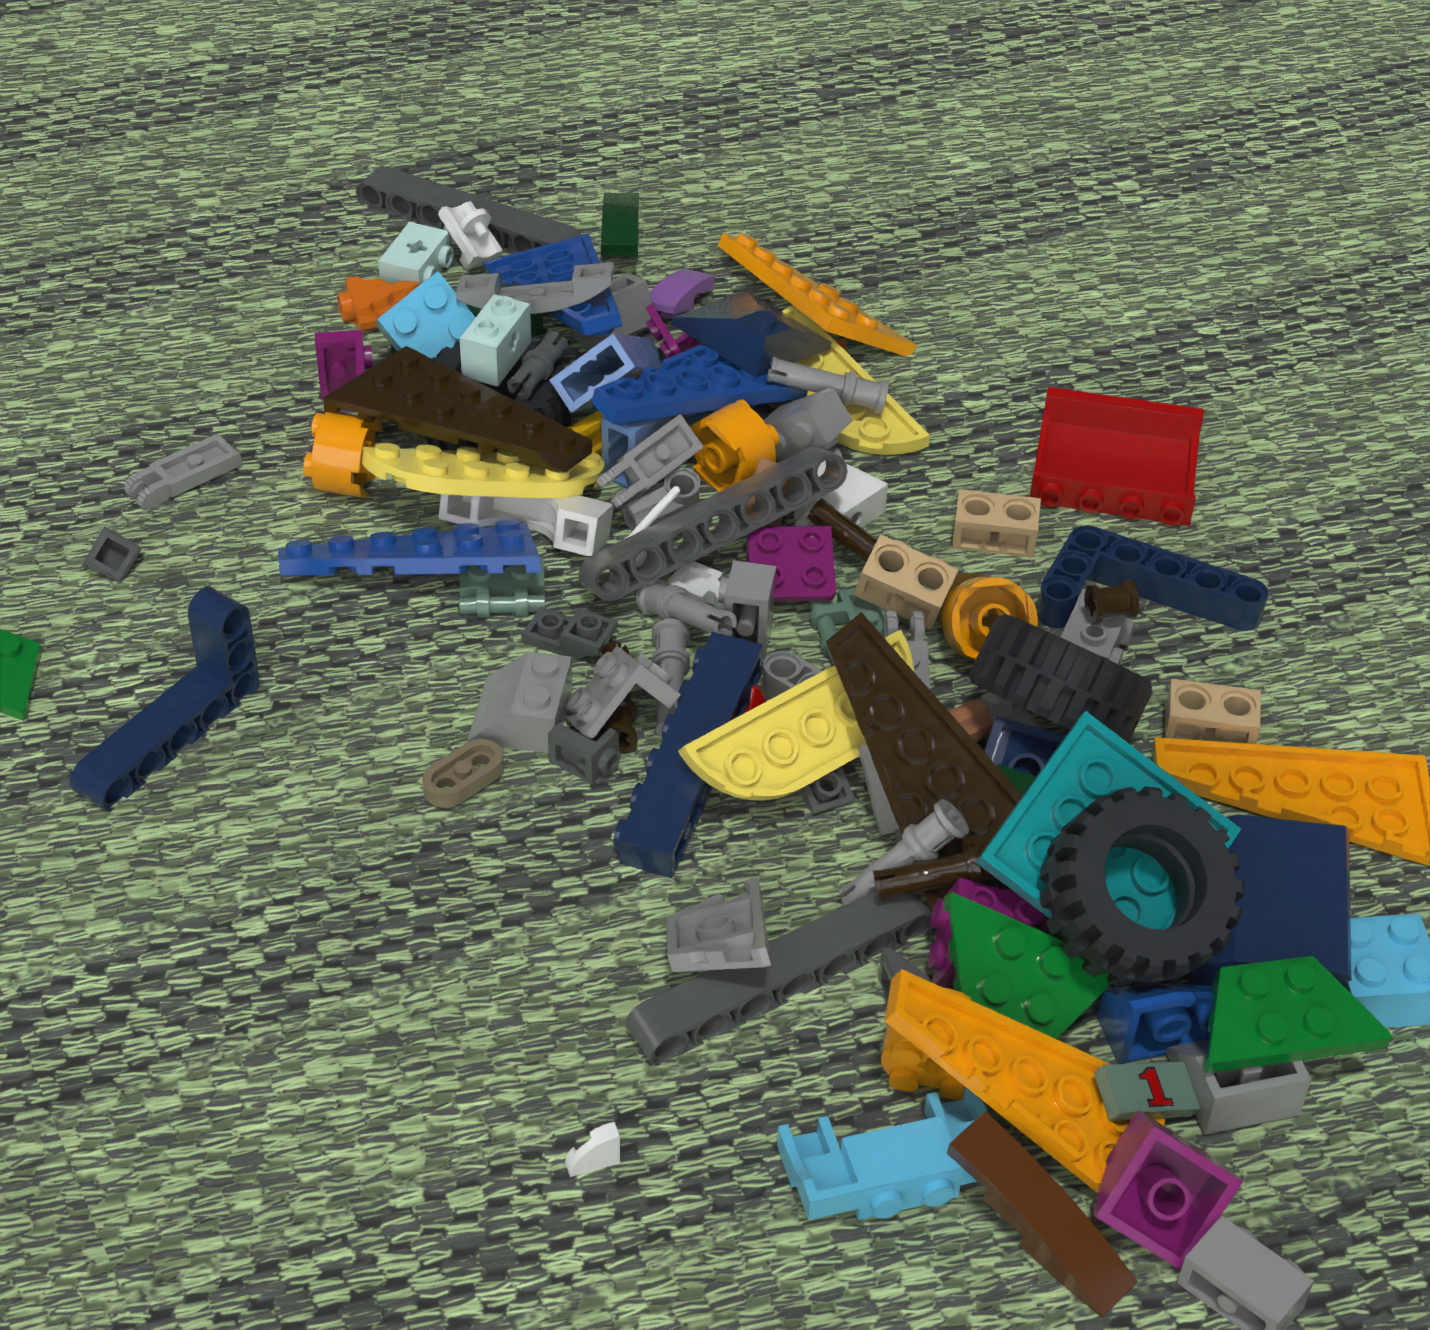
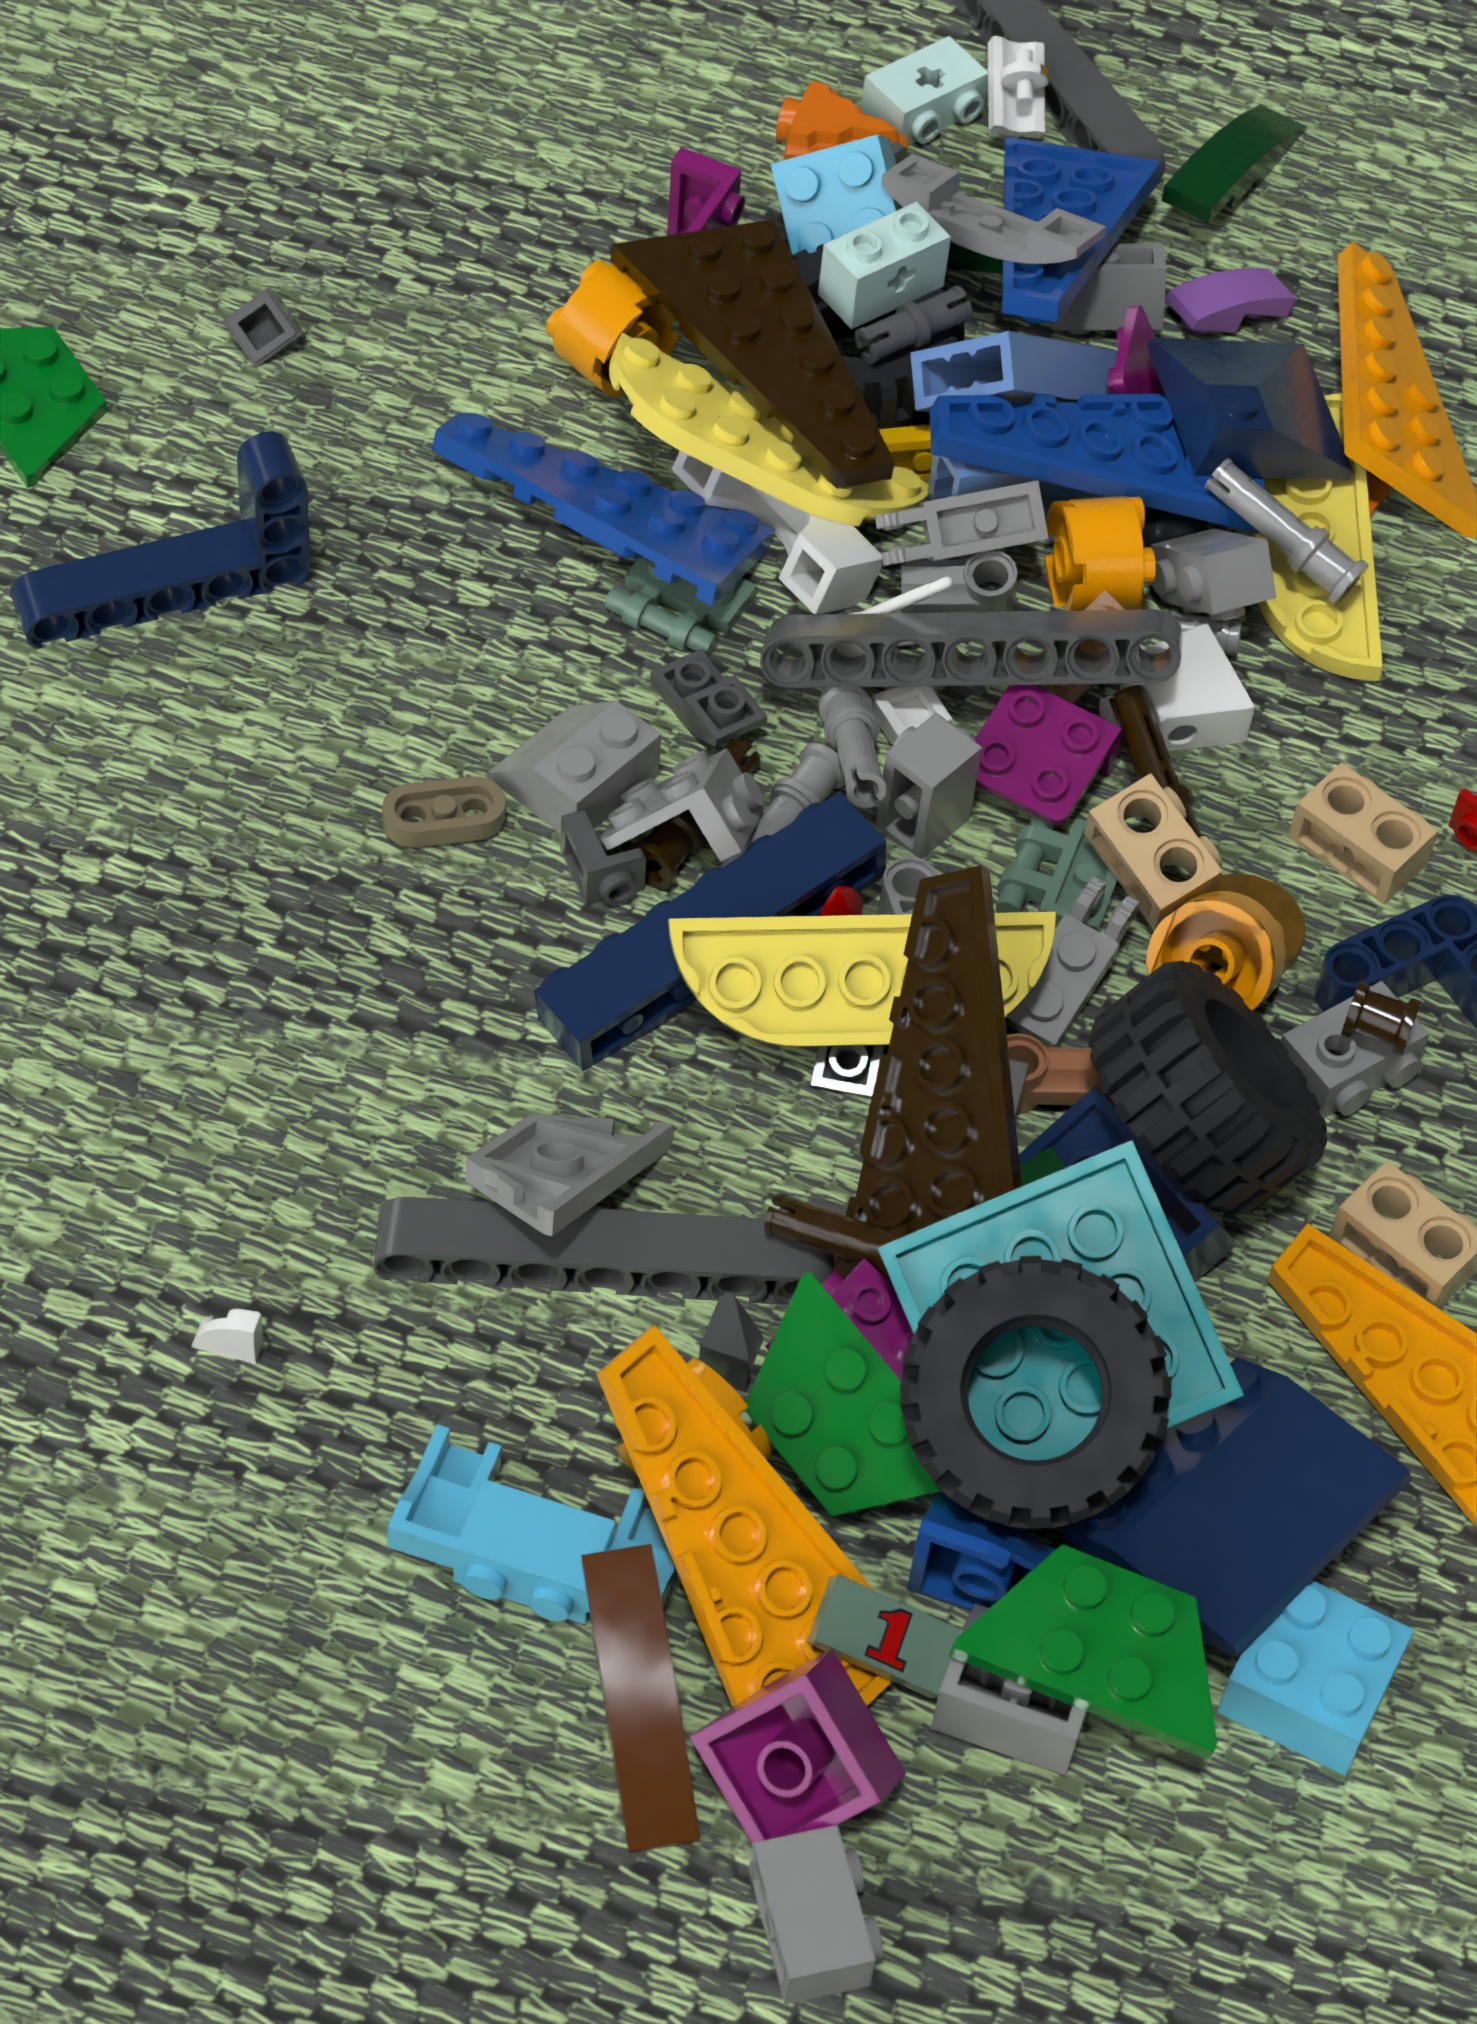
camera: 30 degrees right, 10 degrees up
(182, 471) = (425, 255): light grey hinge -> none
(917, 844) = (857, 1189): light grey pin -> none

